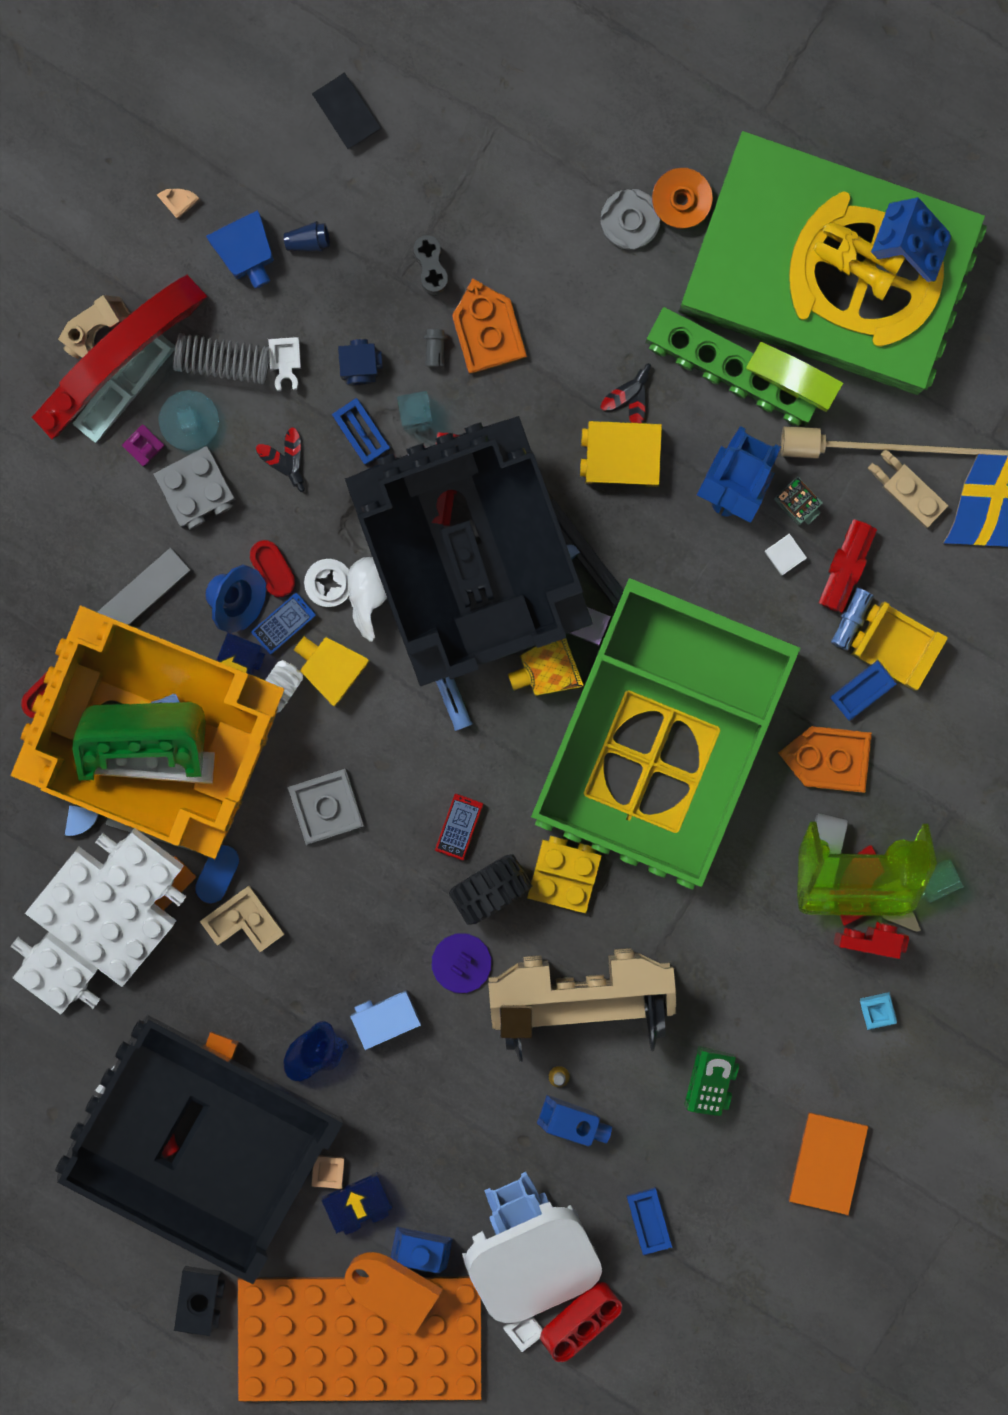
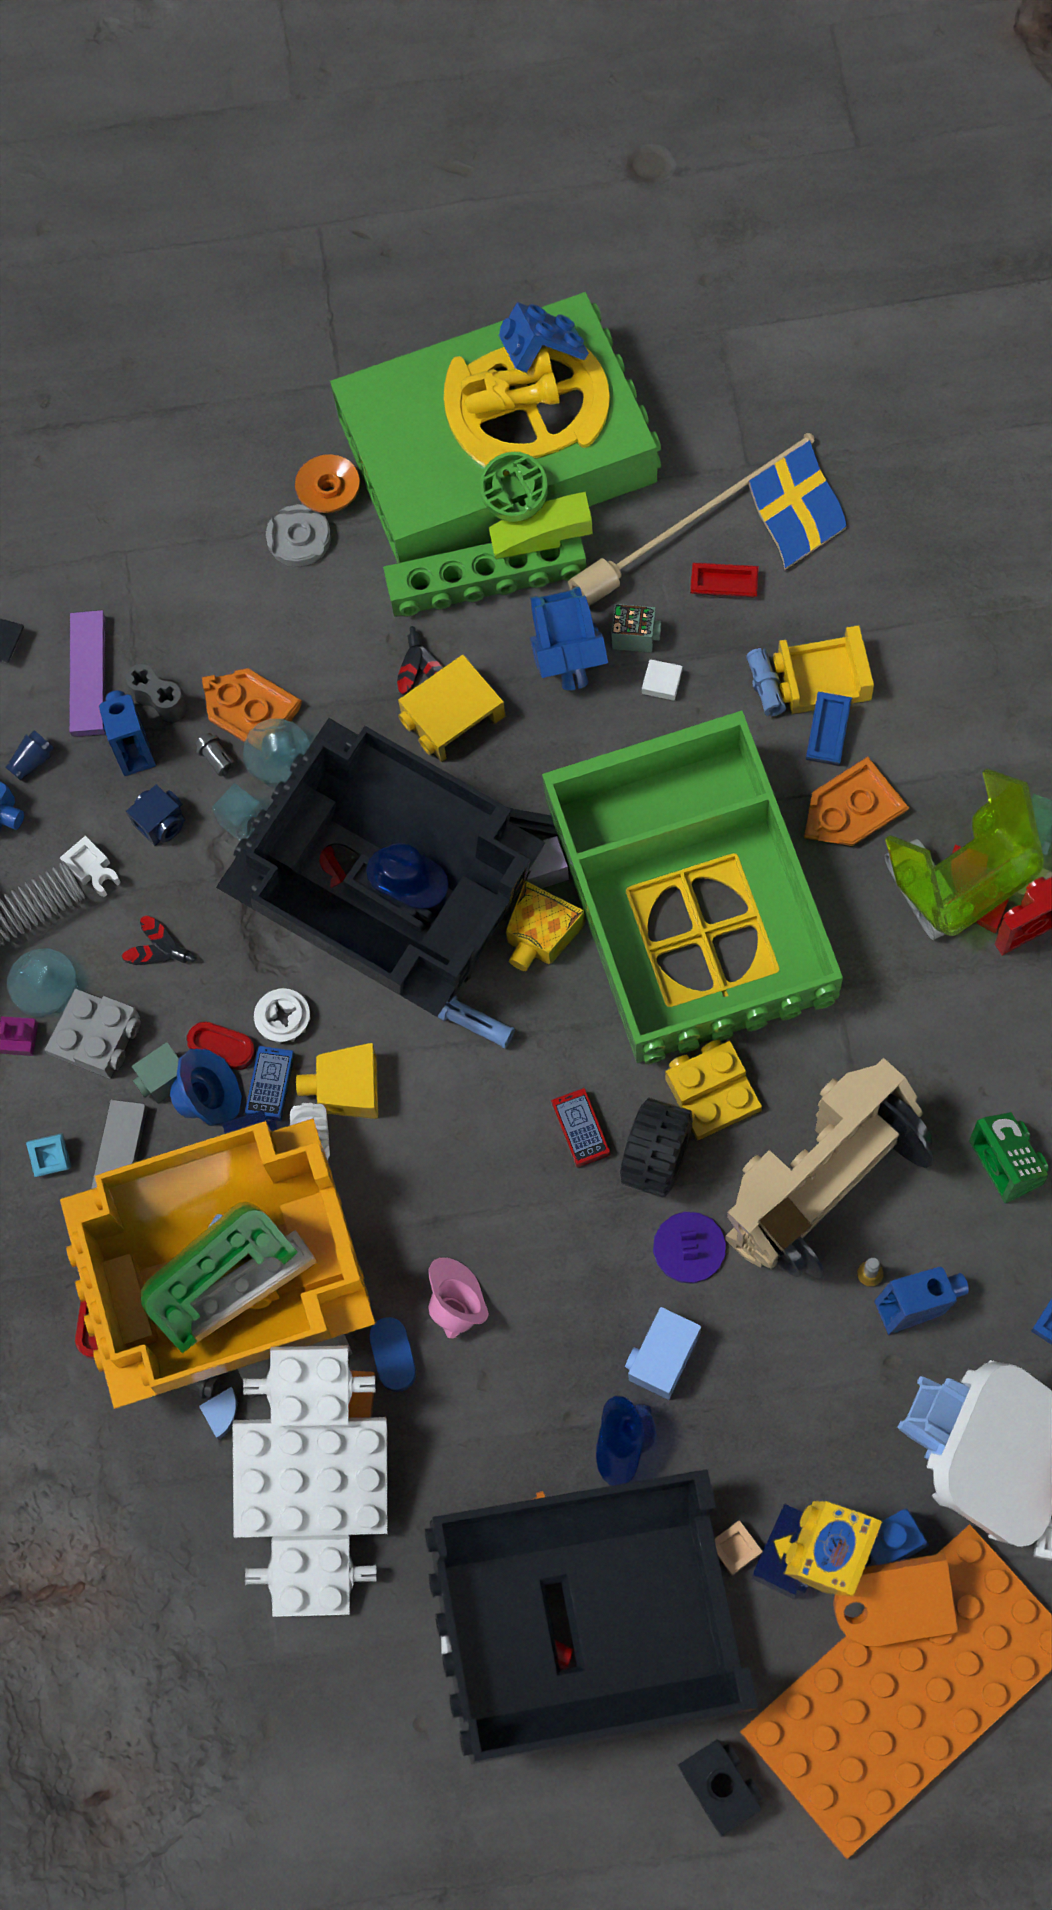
camera: 30 degrees left, 20 degrees down
(101, 551) = (48, 1154): none -> medium azure tile
(215, 557) = (157, 1073): none -> sand green brick
(243, 912) = (446, 1367): tan plate -> none
(286, 874) = (455, 1297): none -> bright pink piece
(325, 806) = (443, 1210): light grey tile -> none
(347, 410) = (196, 882): blue tile -> none
(365, 594) = (323, 989): white hair -> none
(378, 1230) = (832, 1548): none -> yellow slope
(386, 279) = (122, 721): none -> blue torso
(397, 204) = (87, 672): none -> medium lavender tile
(477, 384) = (272, 749): none -> clear light blue tile
(485, 563) = (407, 876): none -> clear blue piece
(782, 334) = (515, 464): none -> bright green piece
(847, 566) = (722, 645): red piece -> none
(893, 516) = (724, 579): none -> red tile
(909, 490) = (715, 549): tan hinge -> none

